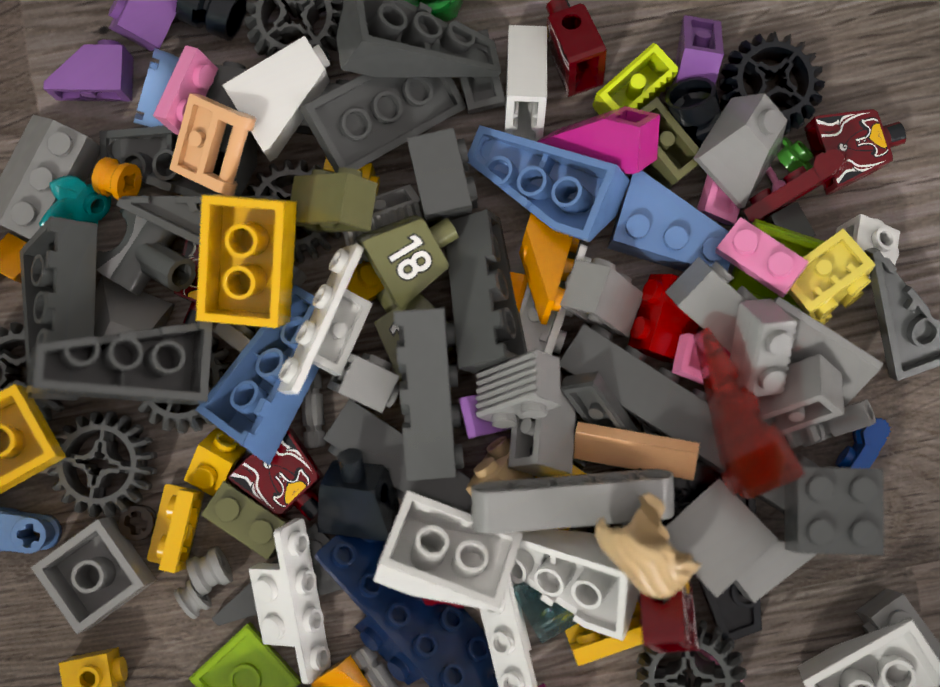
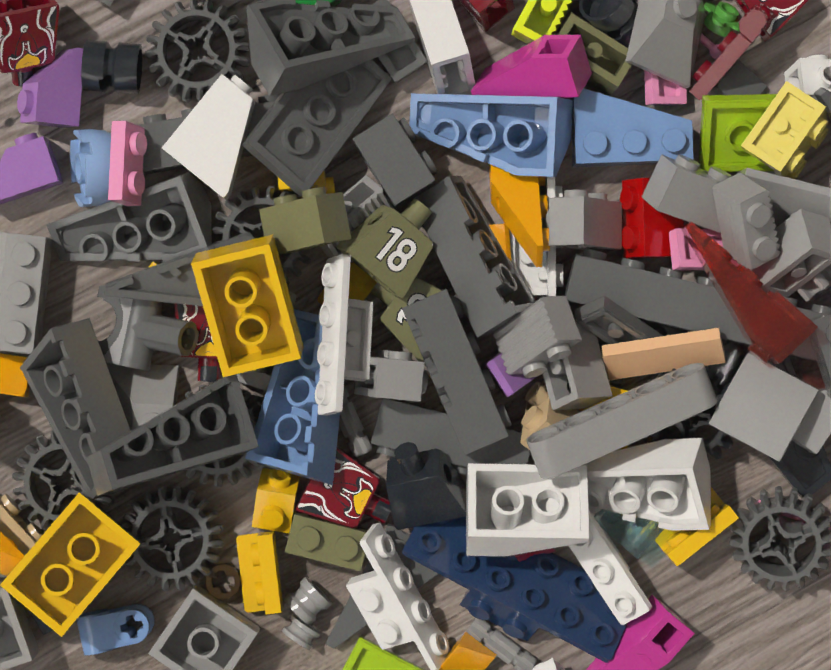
camera: 20 degrees left, 5 degrees up
(75, 201) = (58, 303): teal plate -> none
(116, 179) = (86, 267): light orange wheel -> none
(201, 140) = (160, 206): light nougat plate -> none
(644, 551) = (700, 443): tan hair -> none
(671, 624) = (743, 500): dark red torso -> none
(761, 257) = (719, 135): bright pink plate -> none

